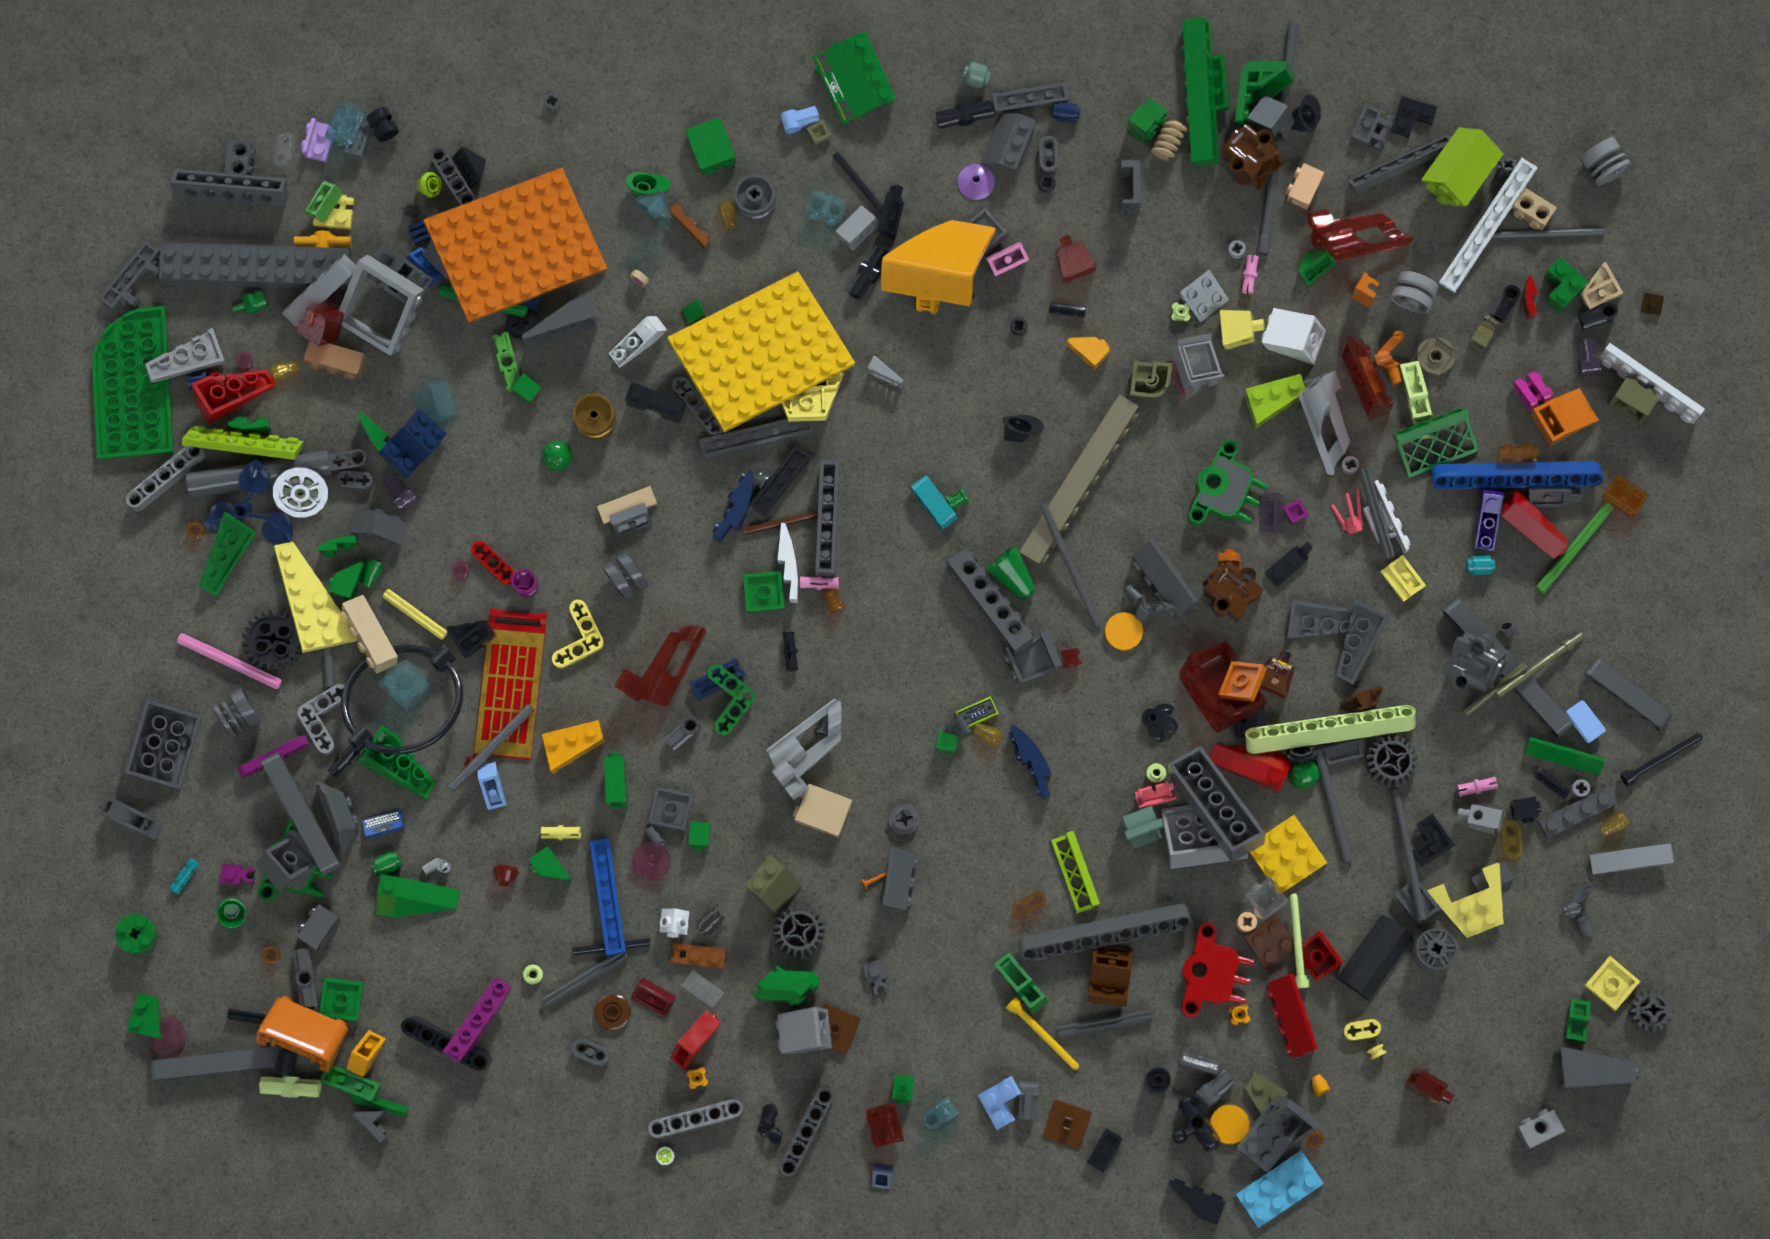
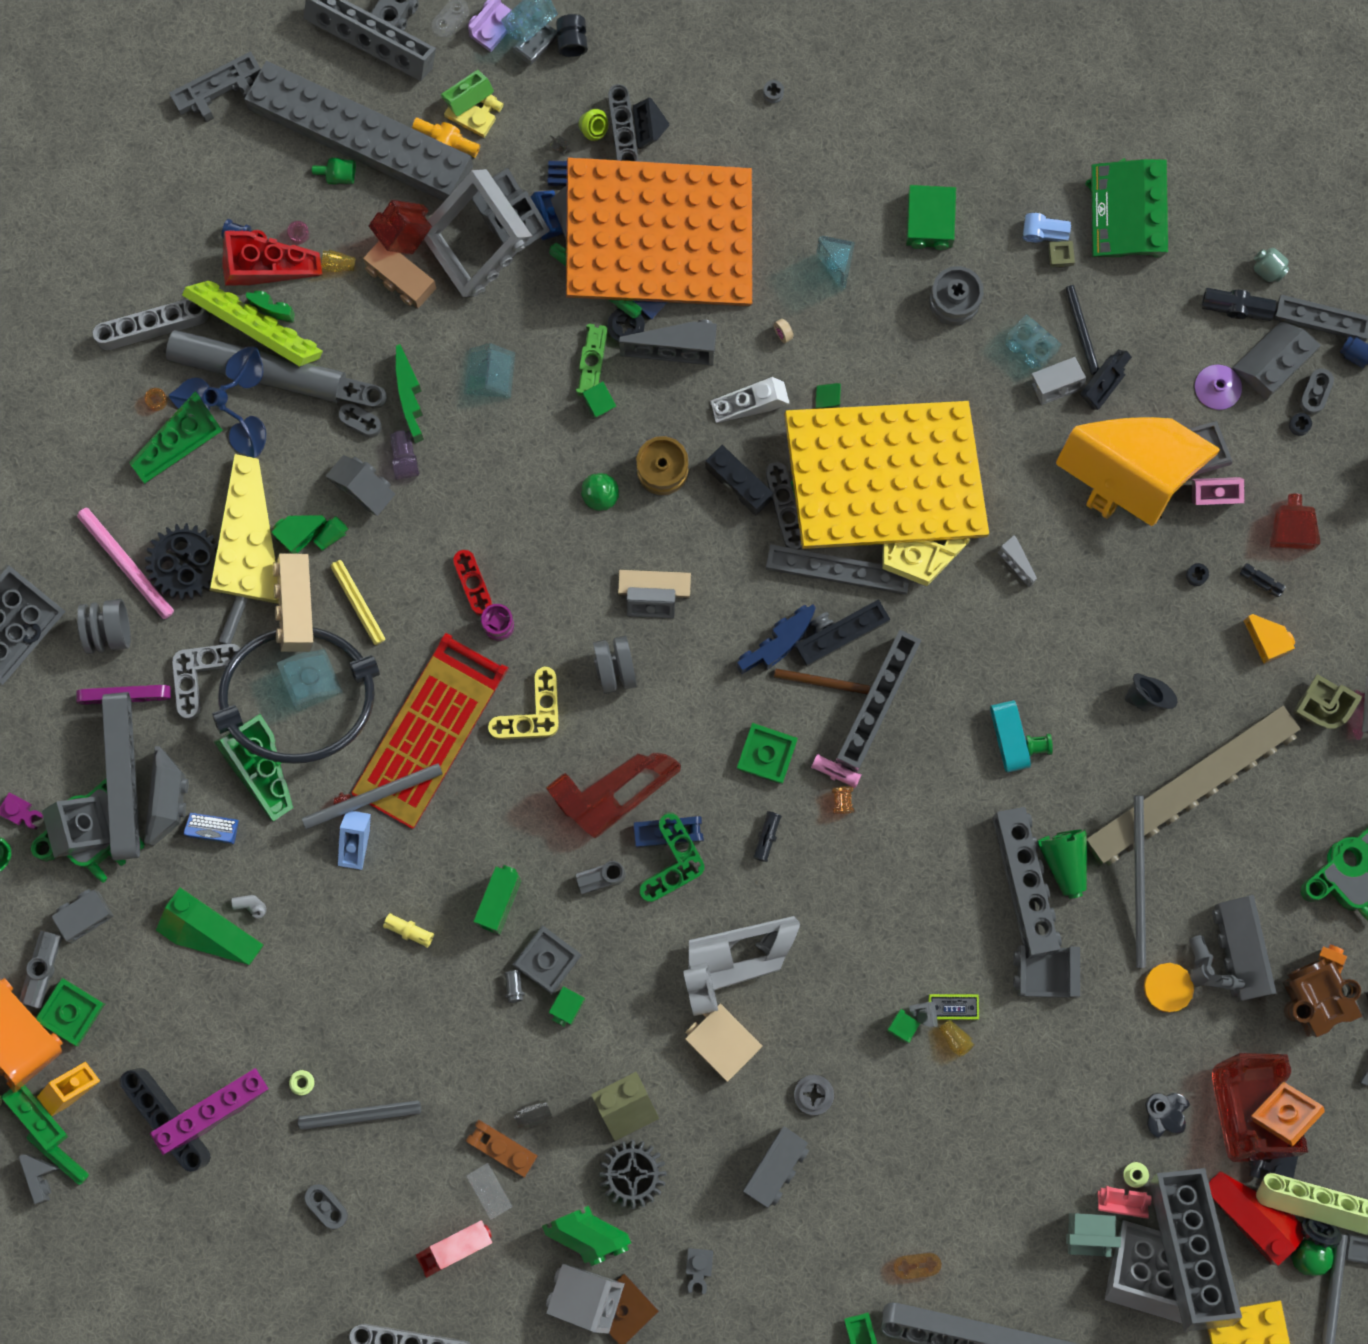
camera: 20 degrees right, 0 degrees up
(131, 411) = (162, 208): green plate -> none
(186, 358) = (246, 202): light grey wing -> none
(268, 960) = (24, 923): clear orange bush -> none
(300, 492) = (291, 406): flat silver piece -> none
(320, 289) = (418, 186): light grey beam -> none
(332, 546) = (299, 484): green slope -> none
(343, 761) = (197, 736): black pin -> none
(386, 863) = (194, 876): green brick -> none
(412, 443) = (441, 406): dark blue bracket -> none
(461, 575) = (436, 568): clear pink bush -> none
(471, 636) = (409, 656): black wing -> none
(505, 875) = (322, 951): clear red cone -> none
(548, 866) = (376, 962): green slope -> none
(571, 743) = (466, 831): light orange wedge -> none
(601, 947) = (407, 1091): black bar -> none
(607, 897) = (428, 1032): blue plate -> none
(608, 1015) = (373, 1169): reddish brown wheel -> none
(646, 183) = (836, 225): green piece -> none
(651, 861) = (497, 1012): clear pink tile -> none
(653, 997) = (428, 1173): dark red slope -> none
(674, 922) = (491, 1097): white brick -> none
(689, 225) = (867, 297): dark orange plate -> none
(692, 1077) = (430, 1299): light orange plate -> none
(728, 214) = (916, 302): clear yellow cone -> none
(787, 557) = (812, 726): white slope -> none
(867, 272) = (1048, 437): black piece -> none
(873, 880) = (747, 1151): orange pin -> none
(1027, 753) = (994, 1082): dark blue slope -> none
(1071, 658) = (1093, 992): clear red wheel -> none
(1082, 869) = (999, 1251): lime fence -> none
(1278, 675) = (1334, 1124): torso -> none

